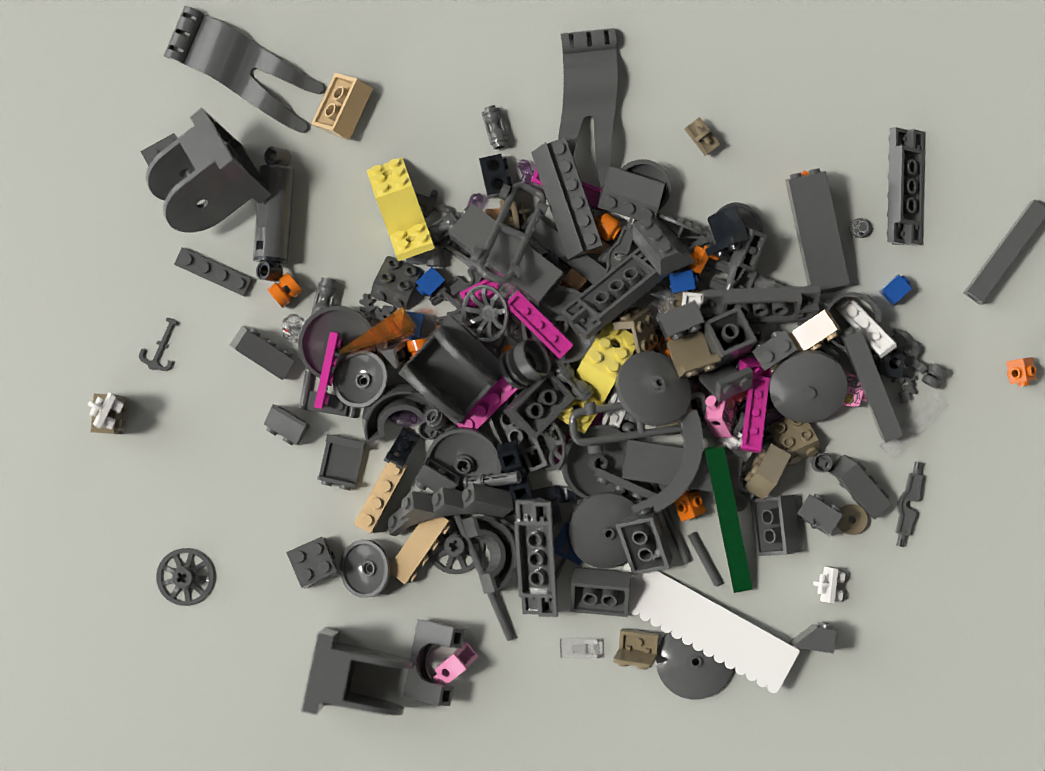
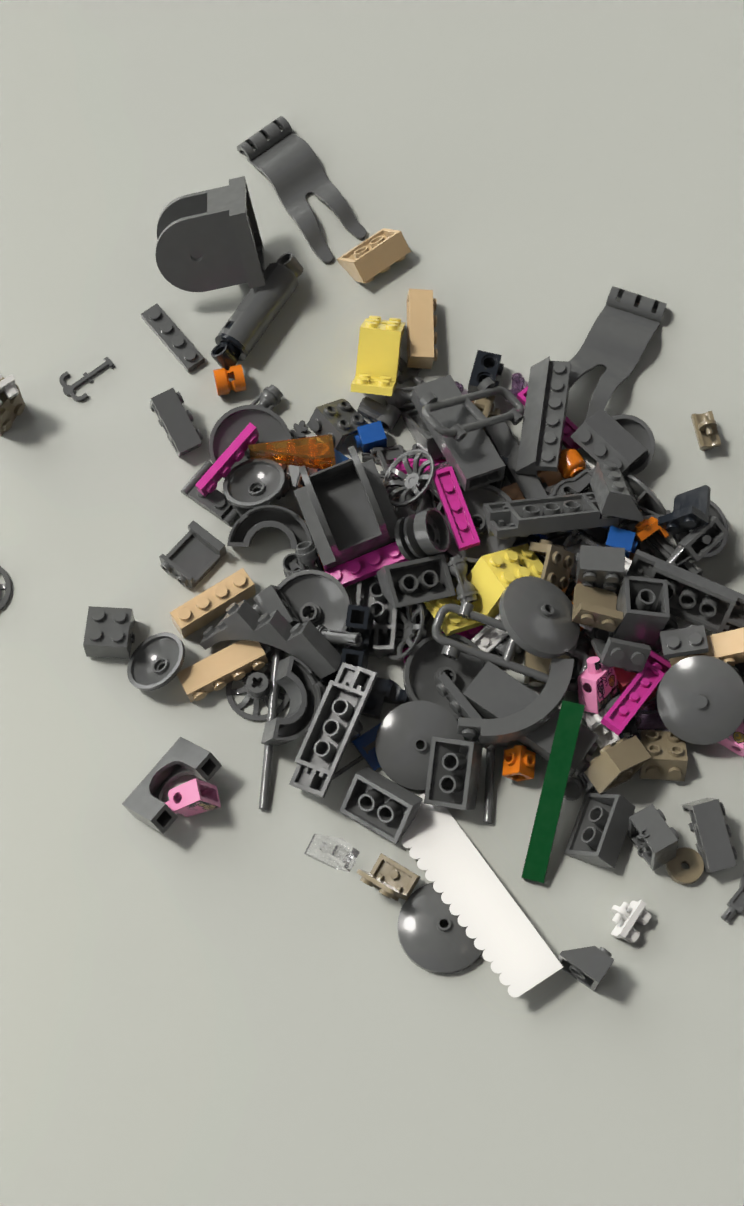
camera: 30 degrees right, 20 degrees down
(285, 424) = (159, 494): dark grey slope -> none
(291, 327) = (214, 412): clear head -> none
(333, 672) = (65, 738): dark grey piece -> none
(401, 448) = (258, 567): black plate -> none
(403, 418) = (274, 543): clear purple plant -> none
(419, 159) = (421, 328): none -> tan brick
(498, 136) = (505, 343): dark grey piece -> none
(704, 559) = (507, 829): dark grey bar -> none
(821, 462) = (682, 787): dark grey wheel -> none

